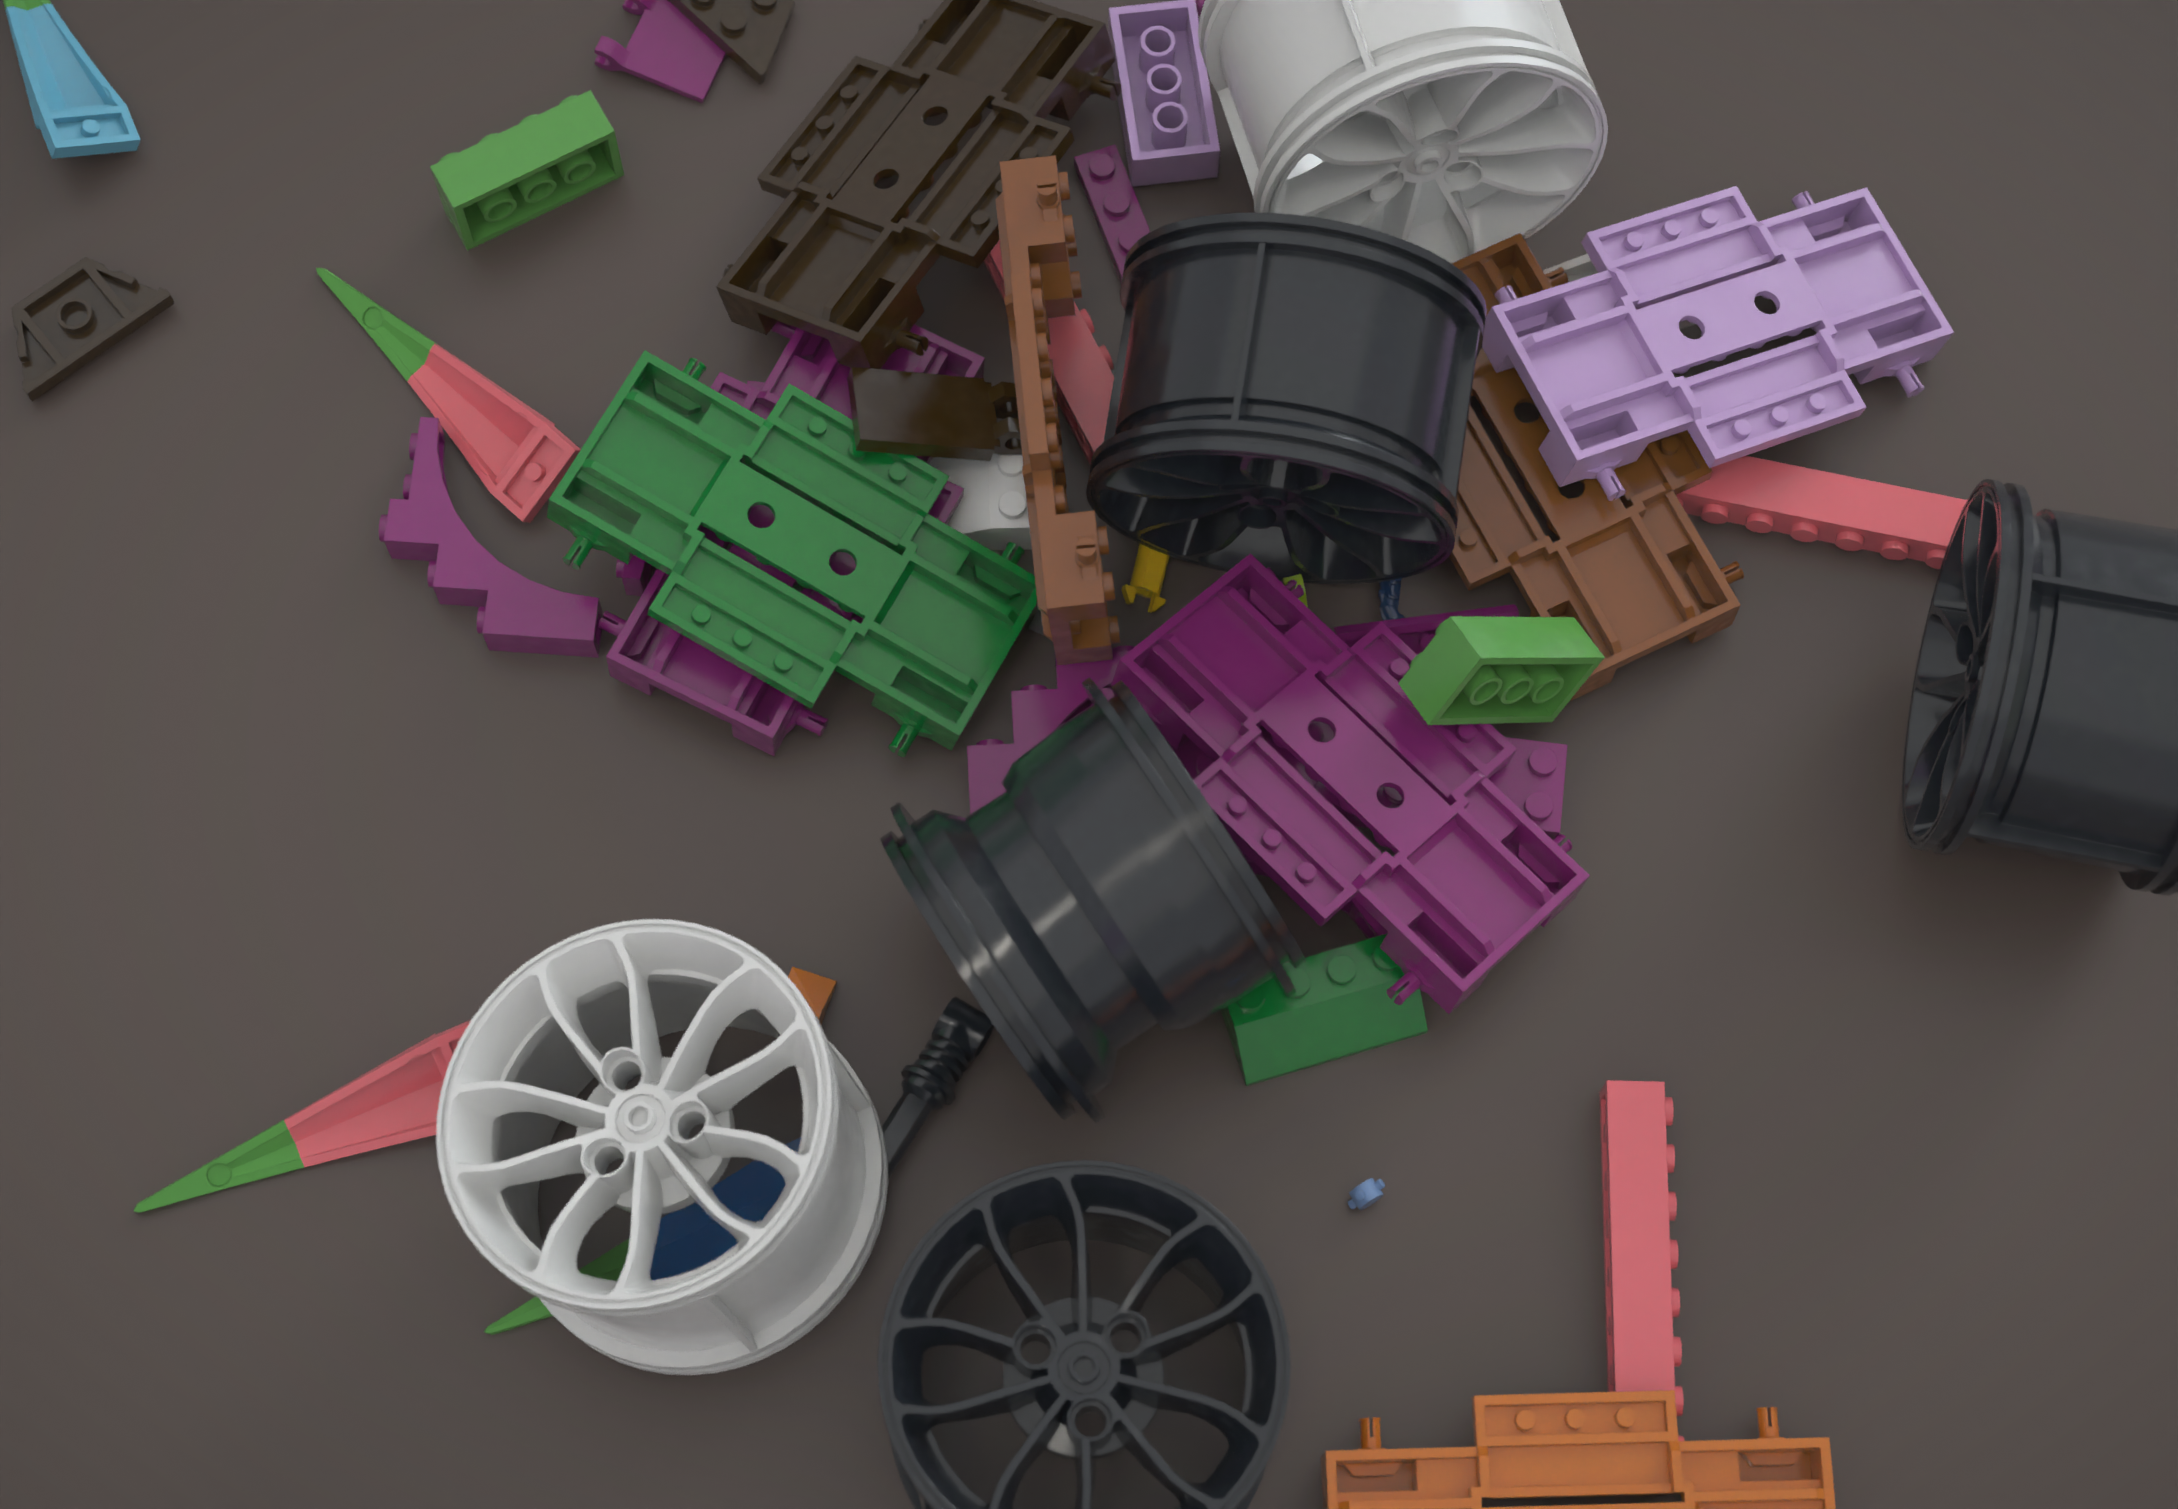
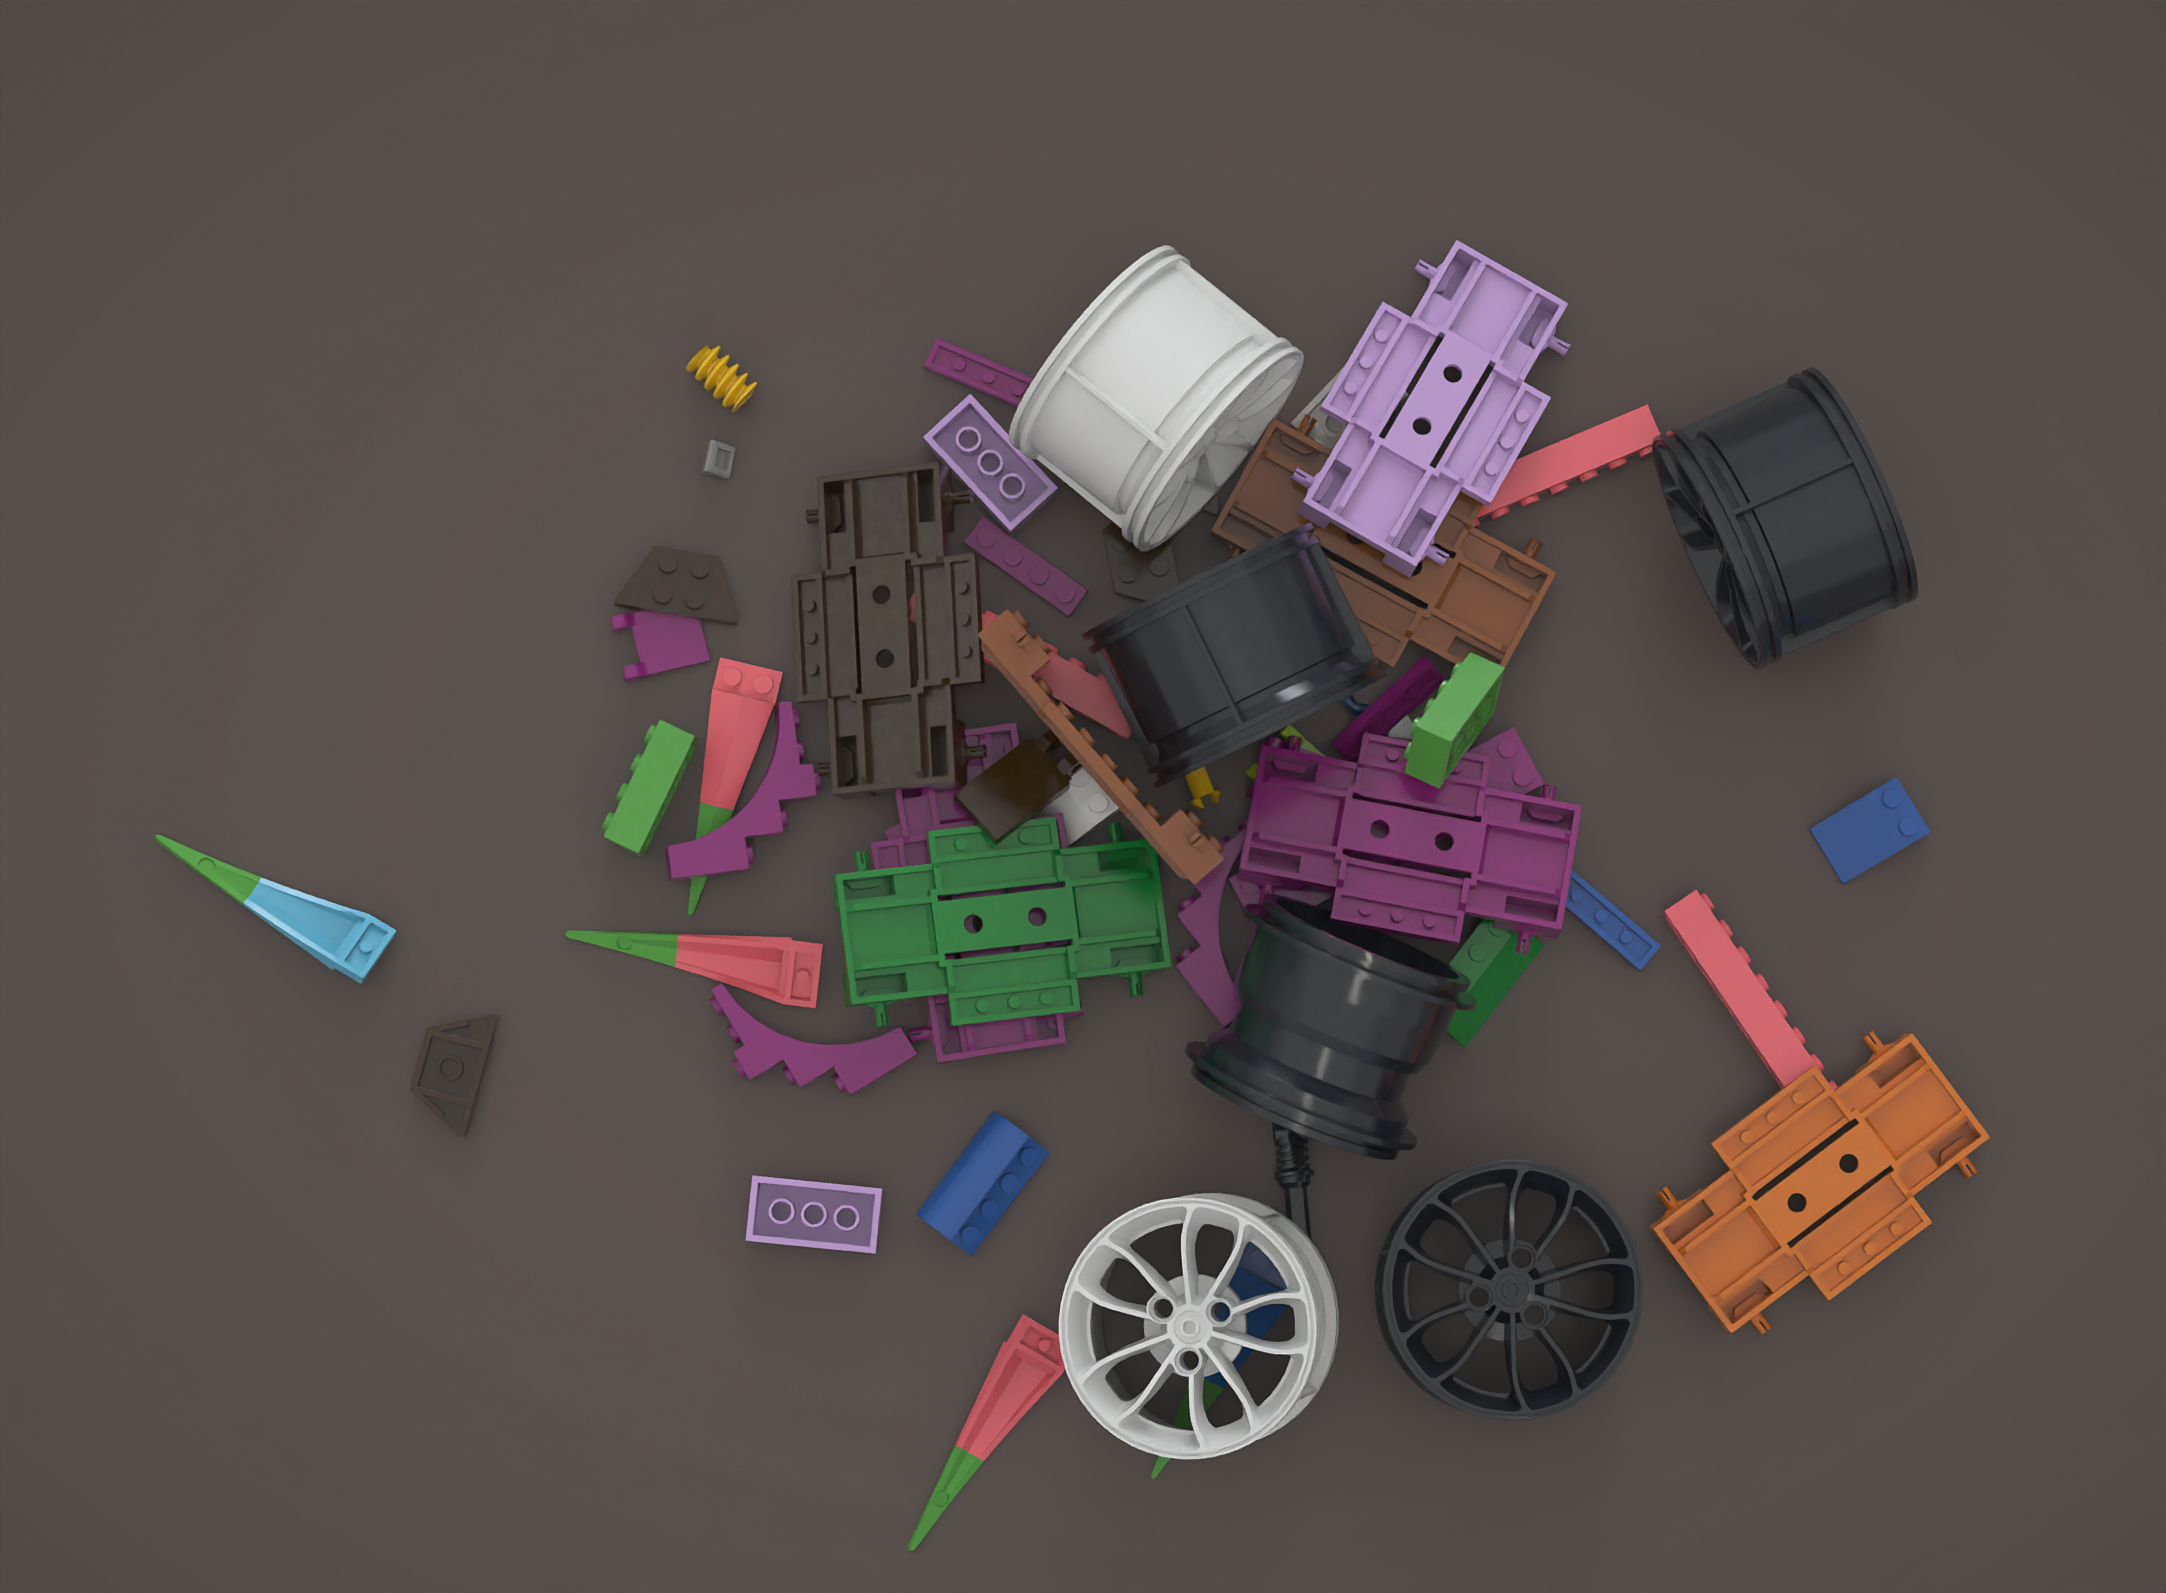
camera: 35 degrees left, 15 degrees up
(335, 739) = (814, 1214): none -> lavender brick
(556, 843) = (982, 1183): none -> blue brick
(625, 279) = (784, 781): none -> magenta arch
(678, 177) = (738, 718): none -> coral plate
(815, 989) = (1186, 1170): orange slope -> none
(1366, 1194) = (1573, 1064): medium blue piece -> none
(1525, 1048) = (1609, 922): none -> blue plate
(1933, 1165) = (1869, 830): none -> blue slope

